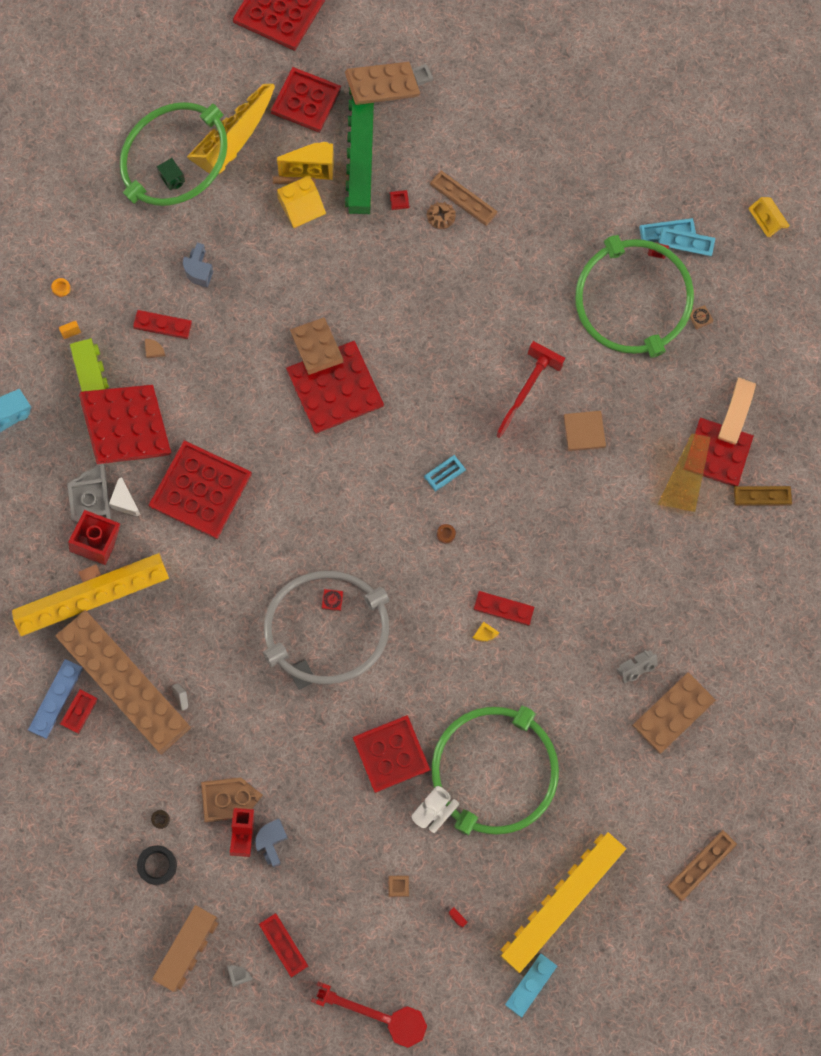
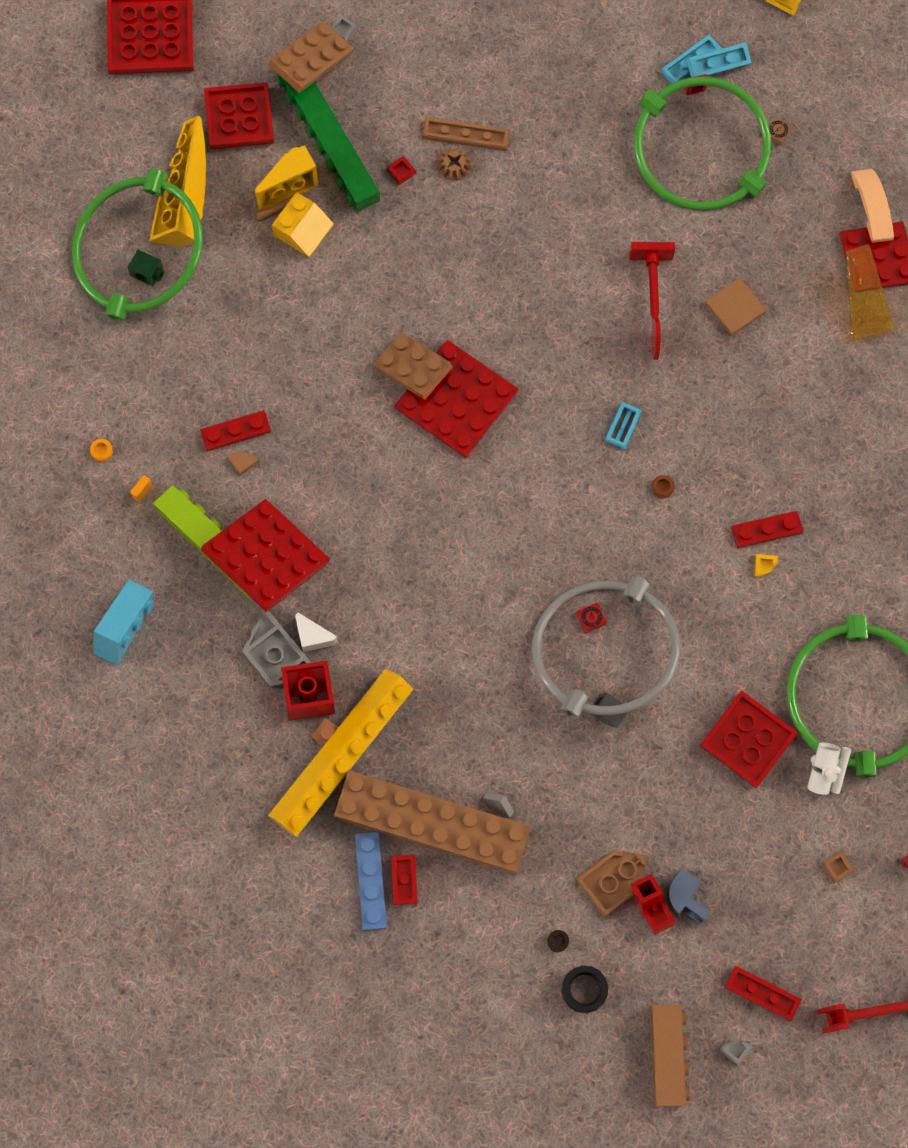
camera: 30 degrees left, 0 degrees up
(196, 270) = (236, 355): sand blue brick -> none
(200, 489) = (385, 580): red plate -> none

